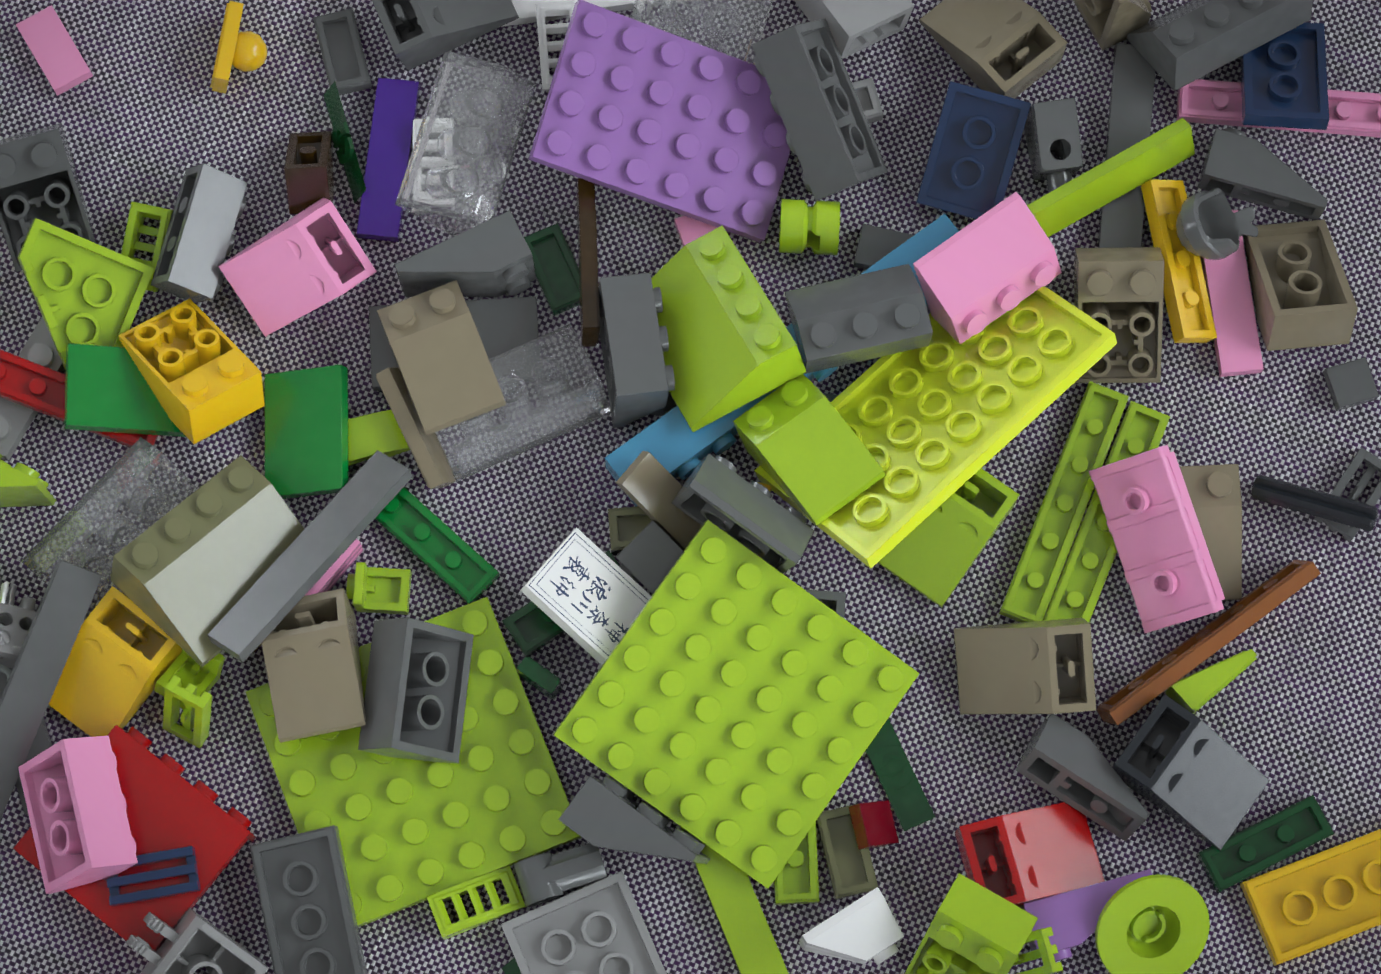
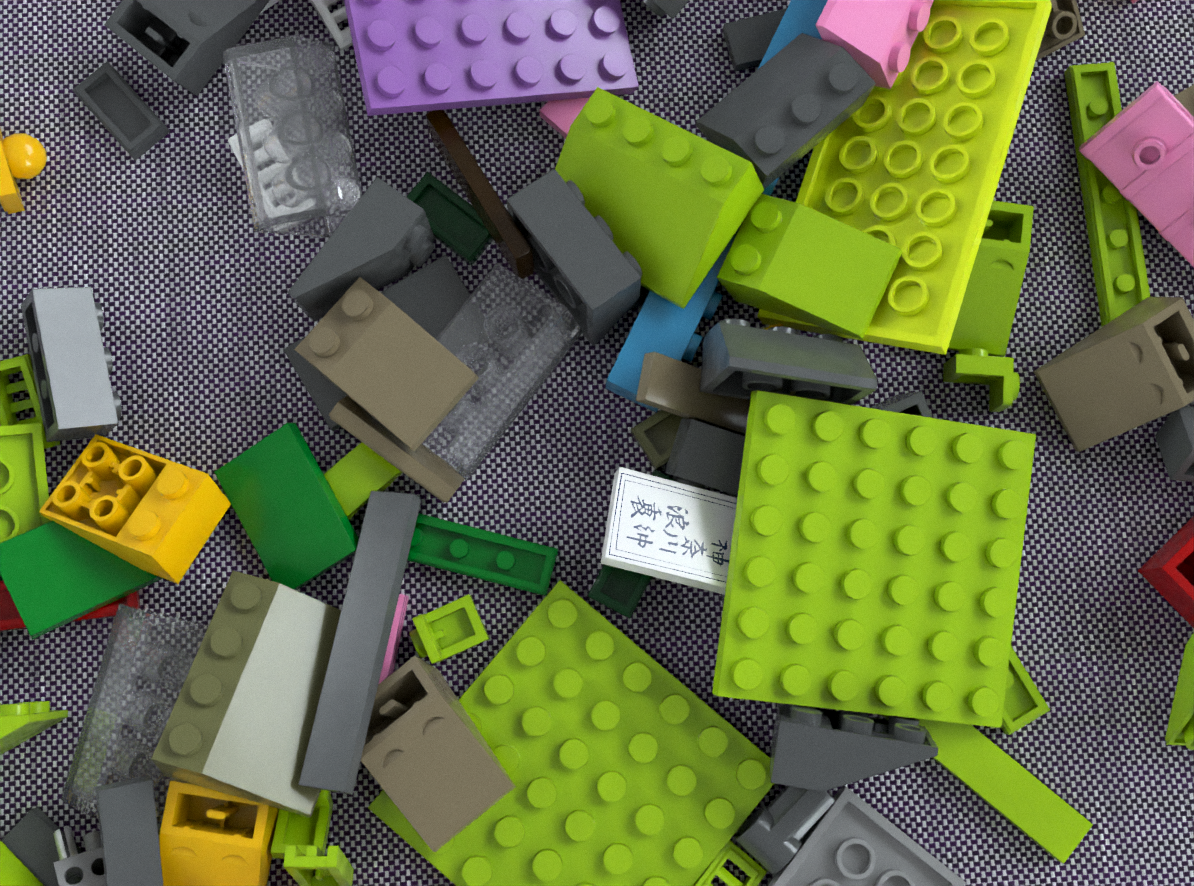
camera: 30 degrees left, 5 degrees up
(297, 267) = (189, 346): bright pink slope -> none
(309, 169) = (151, 247): dark brown slope -> none
(342, 139) = (168, 197): dark green piece -> none
(387, 158) = (223, 193): dark purple tile -> none
(416, 690) = (545, 721): dark grey slope -> none
(539, 677) = (658, 634): dark green tile -> none
(809, 227) = (681, 49): lime wheel -> none
(848, 867) = (1049, 647): olive tile -> none
(857, 932) = (1107, 724): white slope -> none
(873, 824) = (1061, 606): dark red tile -> none
(898, 778) = (1062, 551): dark green piece -> none
(912, 603) = (976, 367): none -> lime bracket
(1063, 504) = (1062, 202): lime tile -> none

